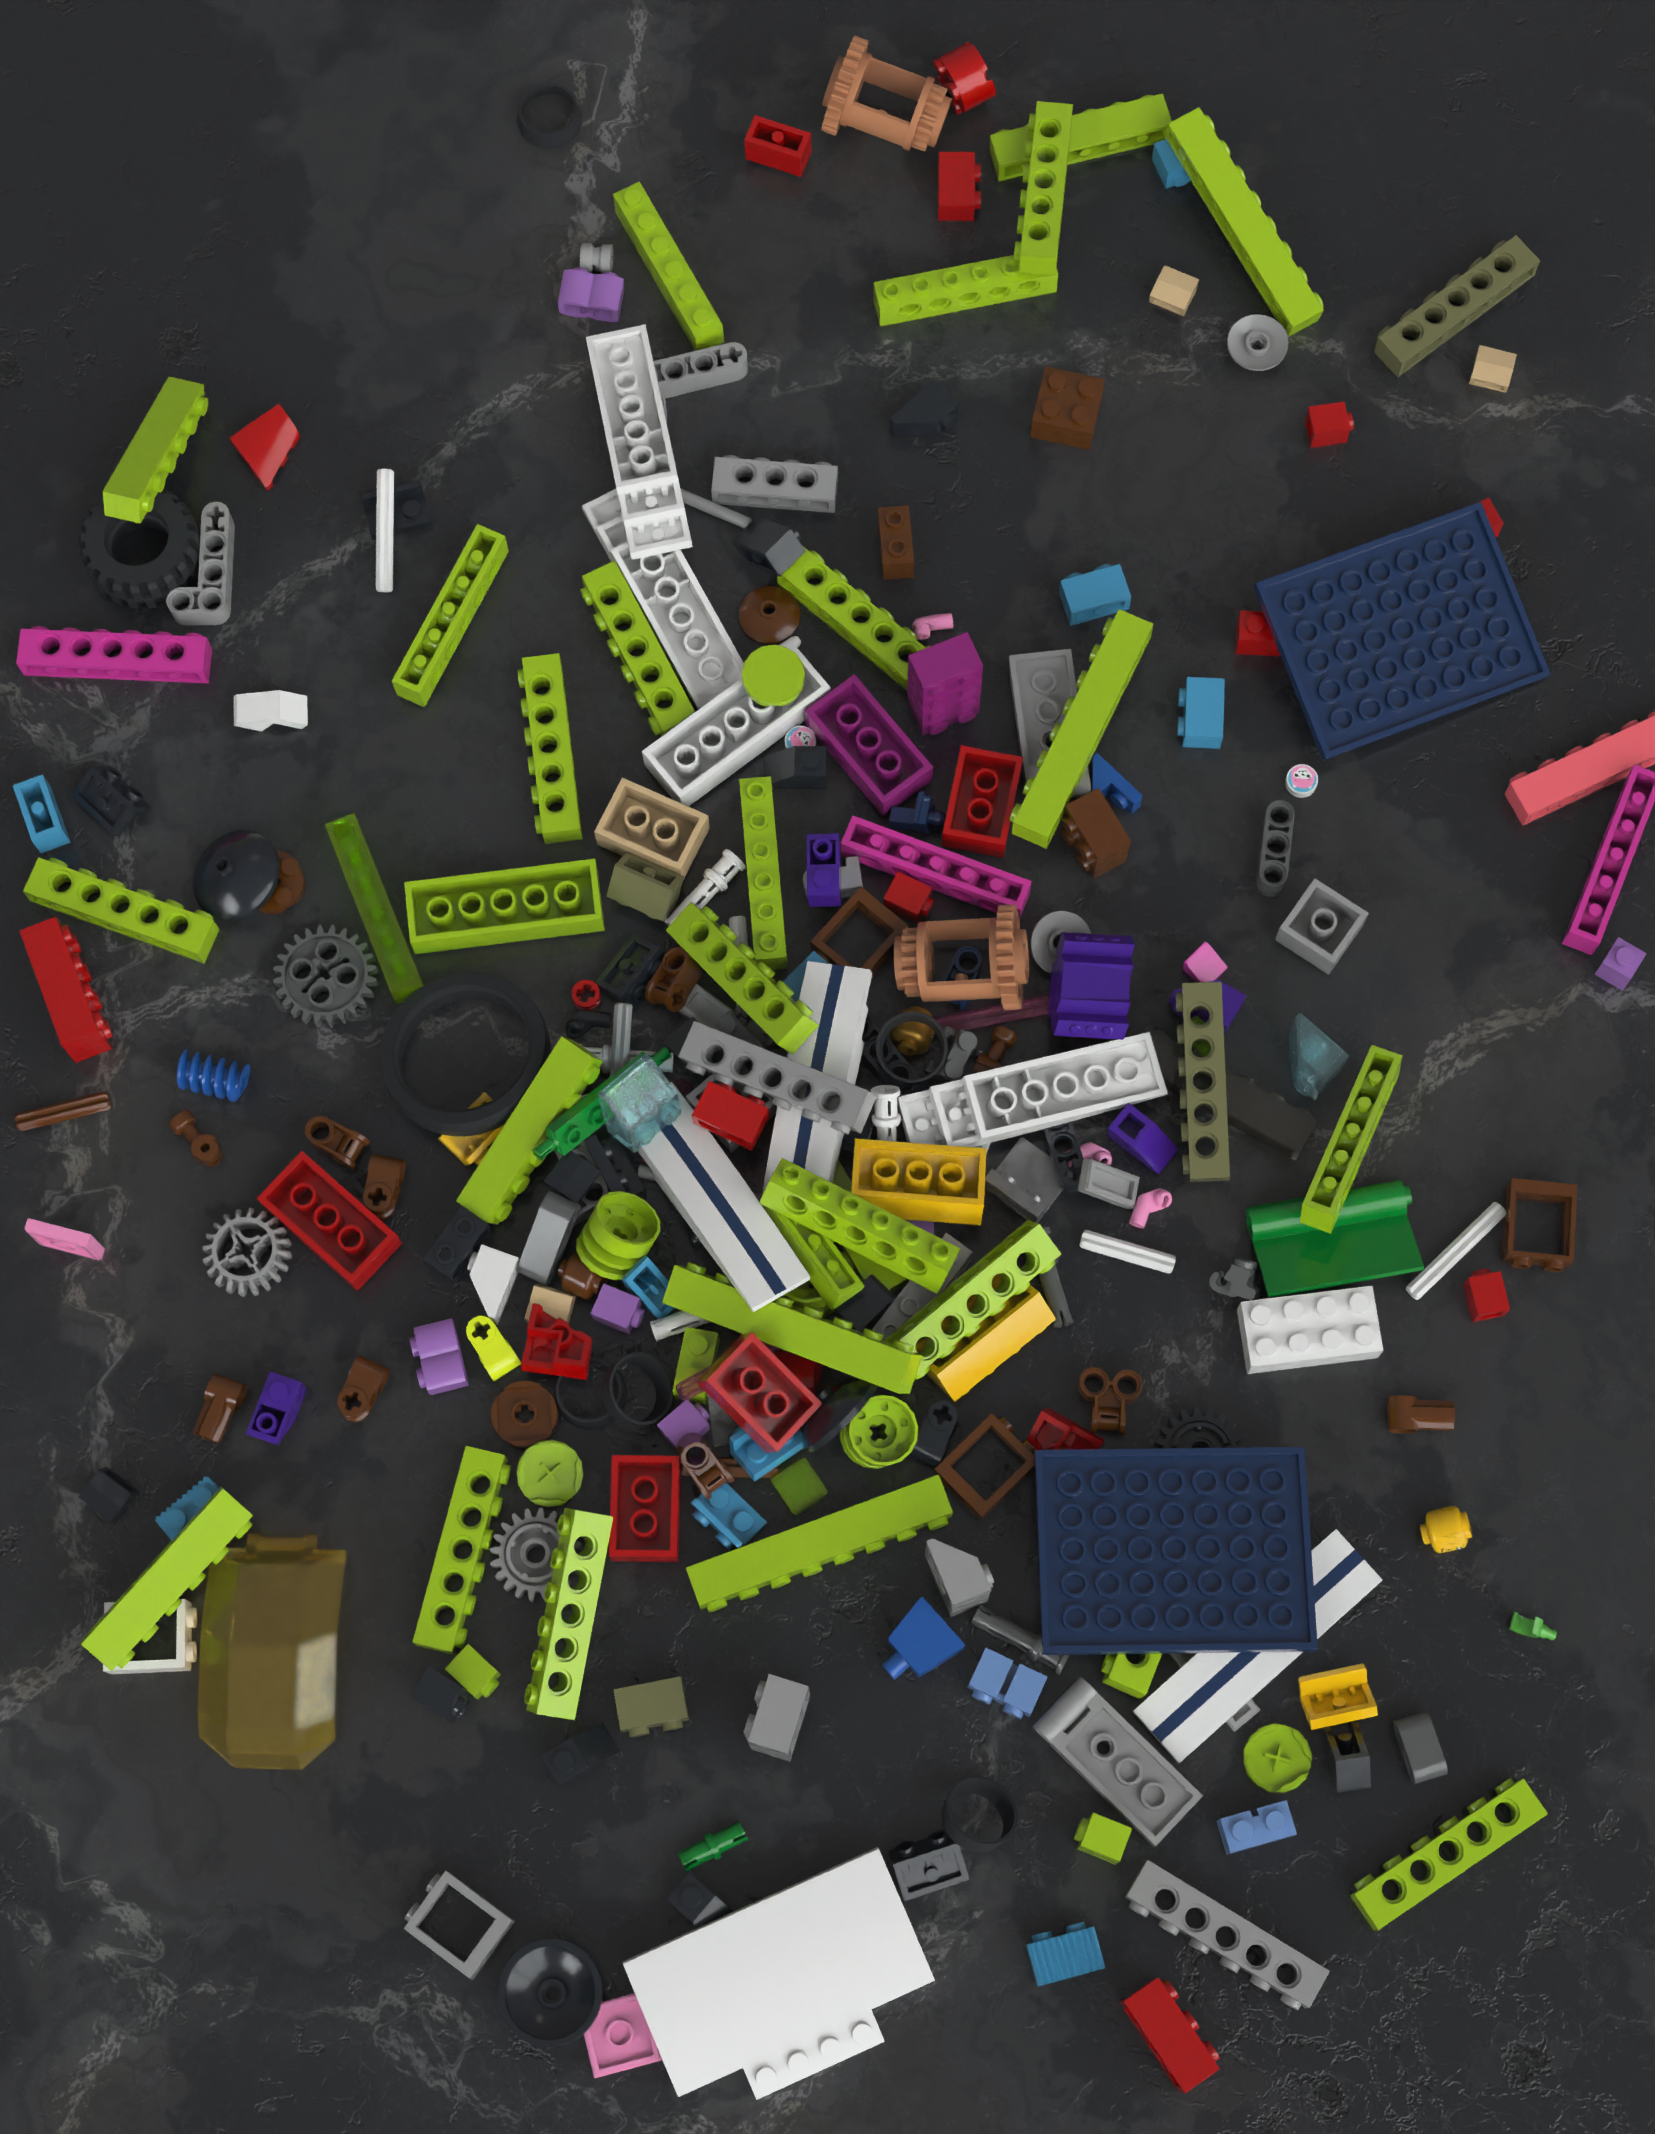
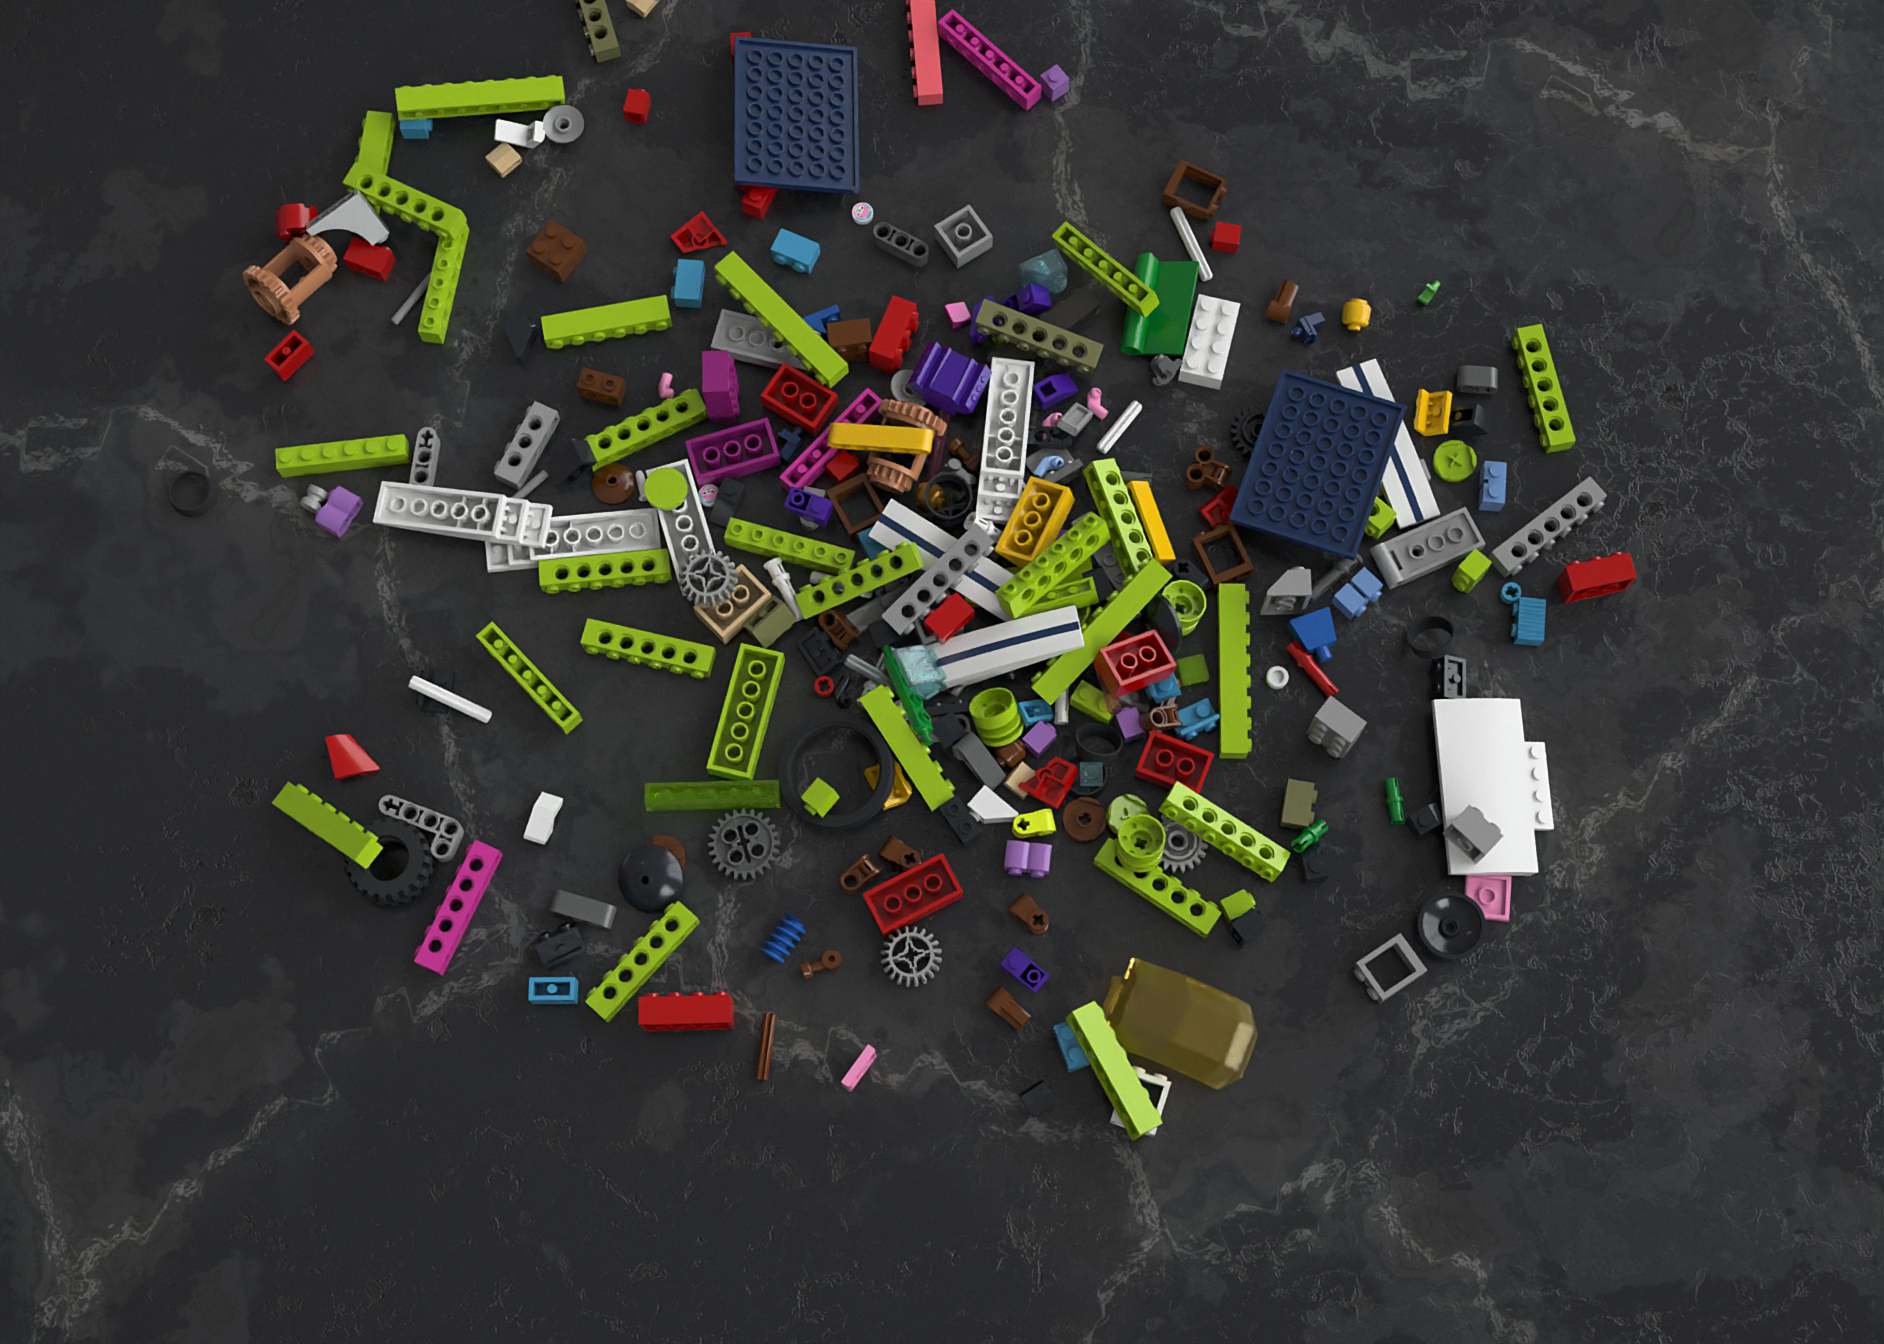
camera: 70 degrees left, 0 degrees up
(165, 808) = (583, 909): none -> dark grey beam
(412, 1042) = (819, 798): none -> lime brick
(501, 1478) = (1143, 832): none -> lime wheel
(585, 1396) = (1091, 773): none -> clear light blue plate
(610, 1739) = (1309, 836): none -> green pin
(652, 781) = (709, 561): none -> light grey gear
(683, 1972) = (1473, 834): none -> light grey brick
(837, 1611) = (1277, 677): none -> white tile
(867, 1656) = (1311, 668): none -> red pin
(915, 260) = (411, 300): none -> light grey piece
(954, 923) = (880, 438): none -> yellow beam
(993, 512) = (606, 322): none -> lime brick
(996, 134) = (351, 214): none -> light grey arch
(1025, 1170) = (1048, 464): none -> light blue arm
(1090, 1912) = (1508, 598): none -> dark azure bush
(1128, 888) = (894, 335): none -> red brick
(1173, 578) = (697, 235): none -> red slope
(1216, 291) = (519, 134): none -> white bracket
(1260, 1052) = (1029, 300): none -> dark purple slope
(1395, 1461) = (1306, 327): none -> dark blue piece

